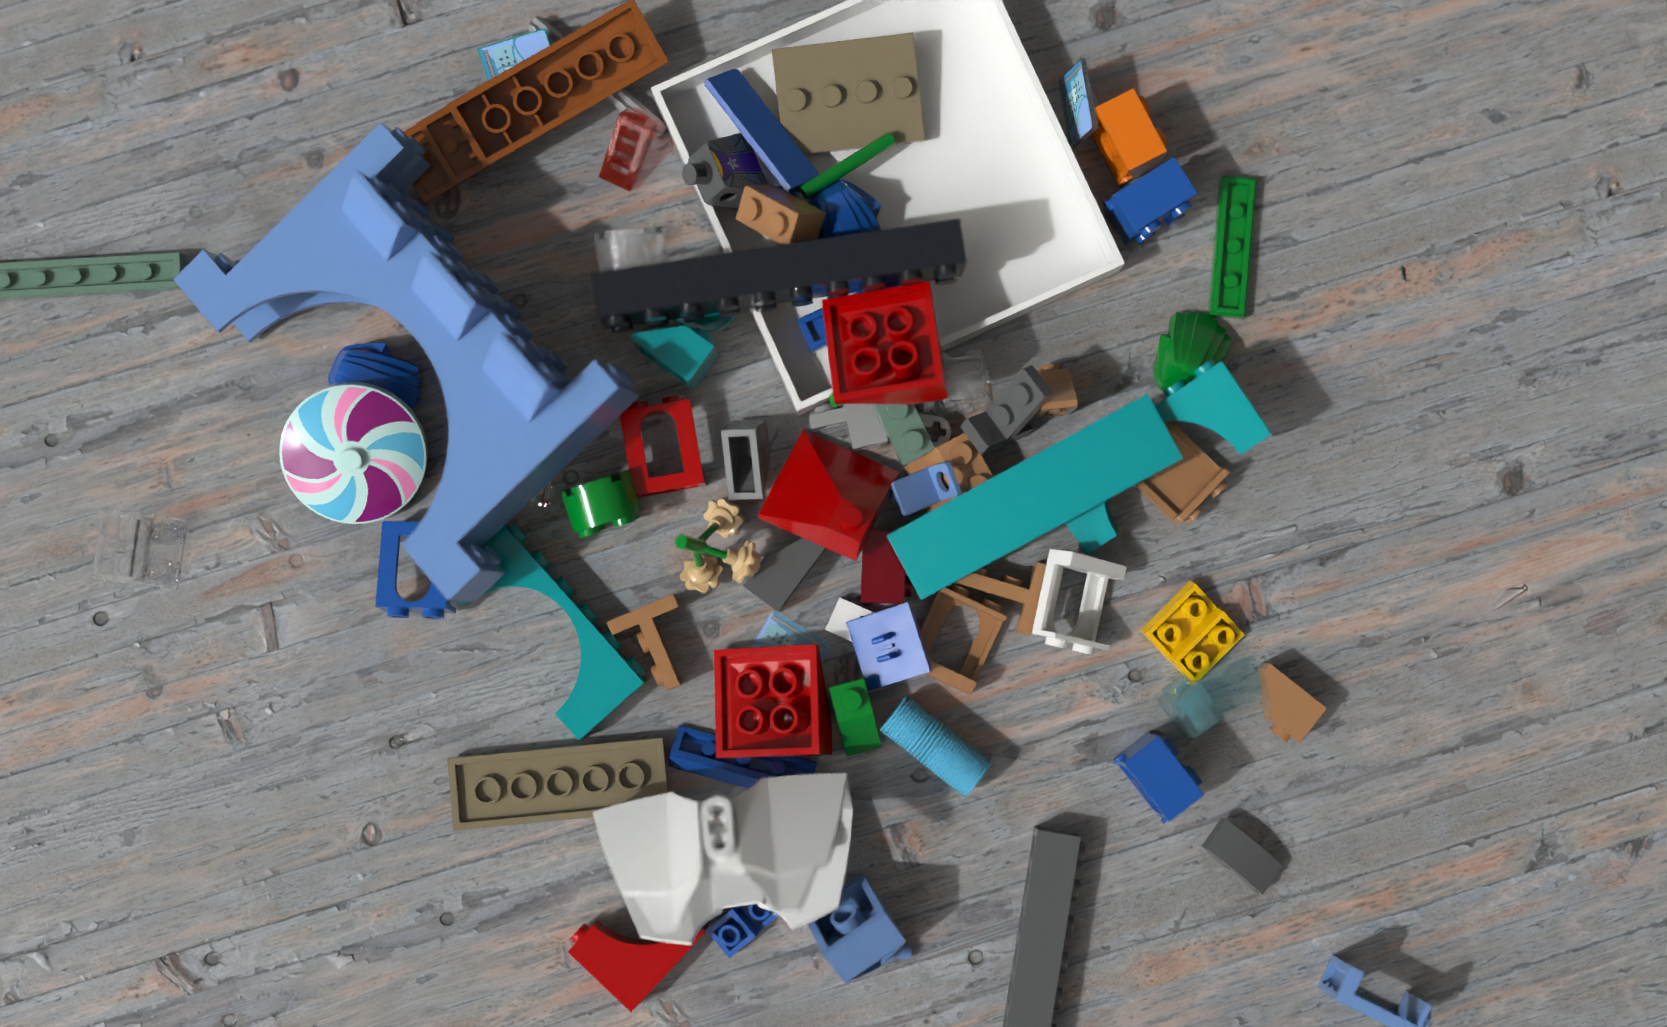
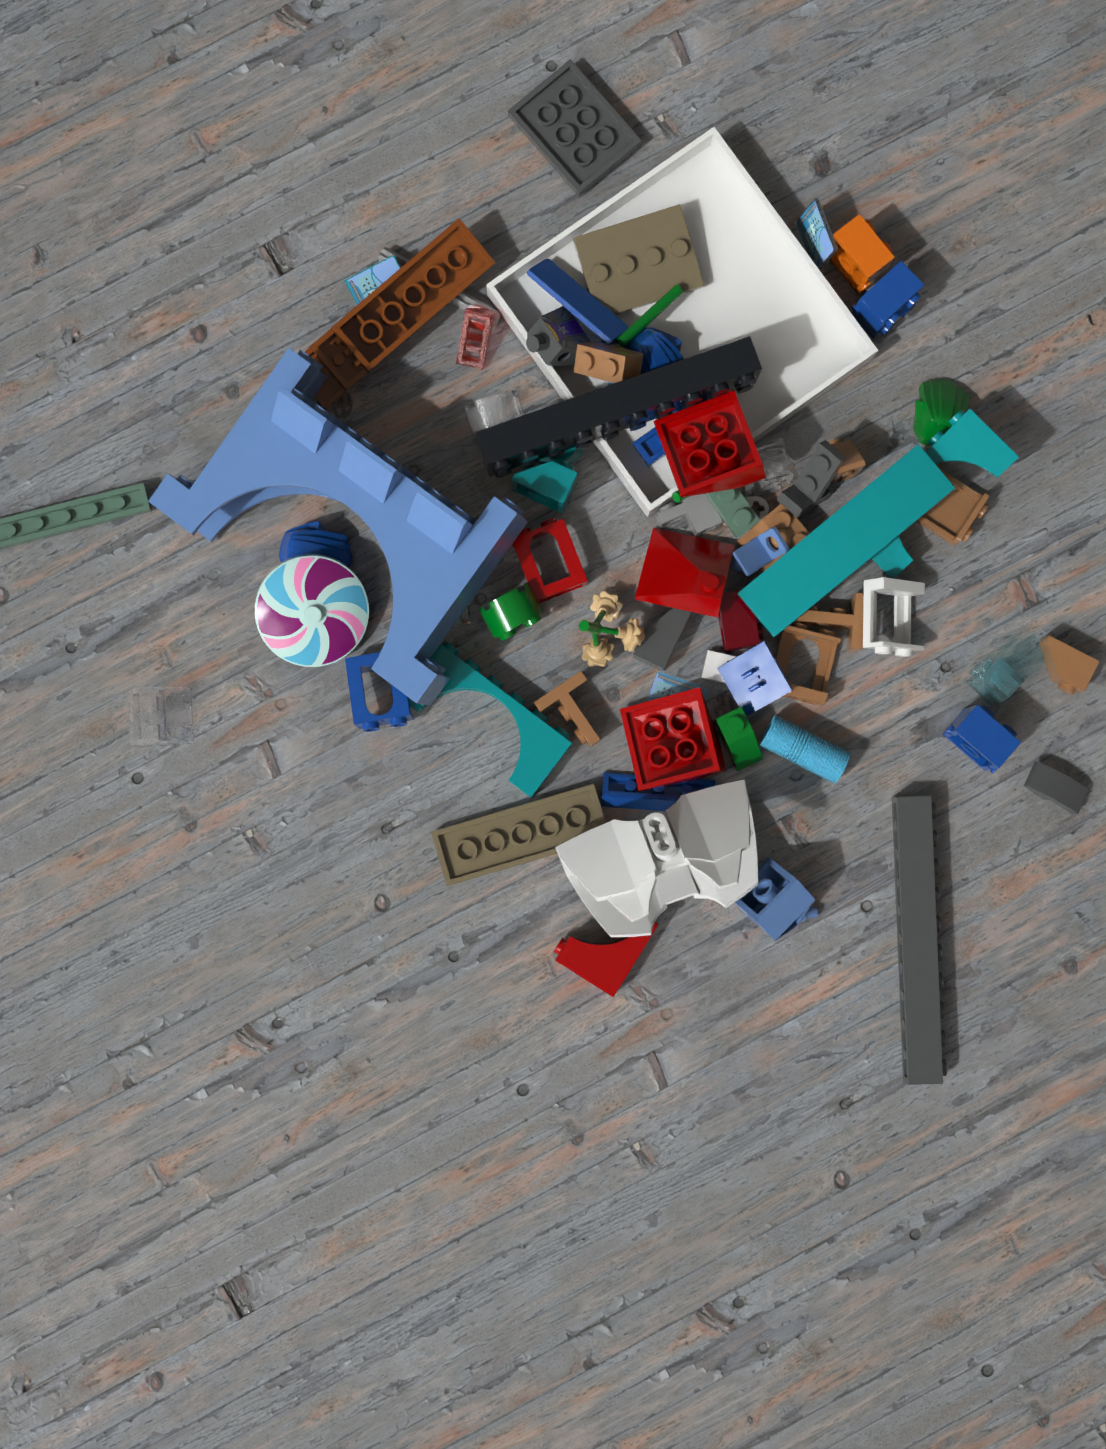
camera: 15 degrees left, 0 degrees up
(739, 927) = (682, 916): blue slope -> none
(746, 458) = (615, 557): dark grey slope -> none
(1192, 632) = (983, 624): yellow slope -> none
(1232, 247) = (955, 324): green tile -> none

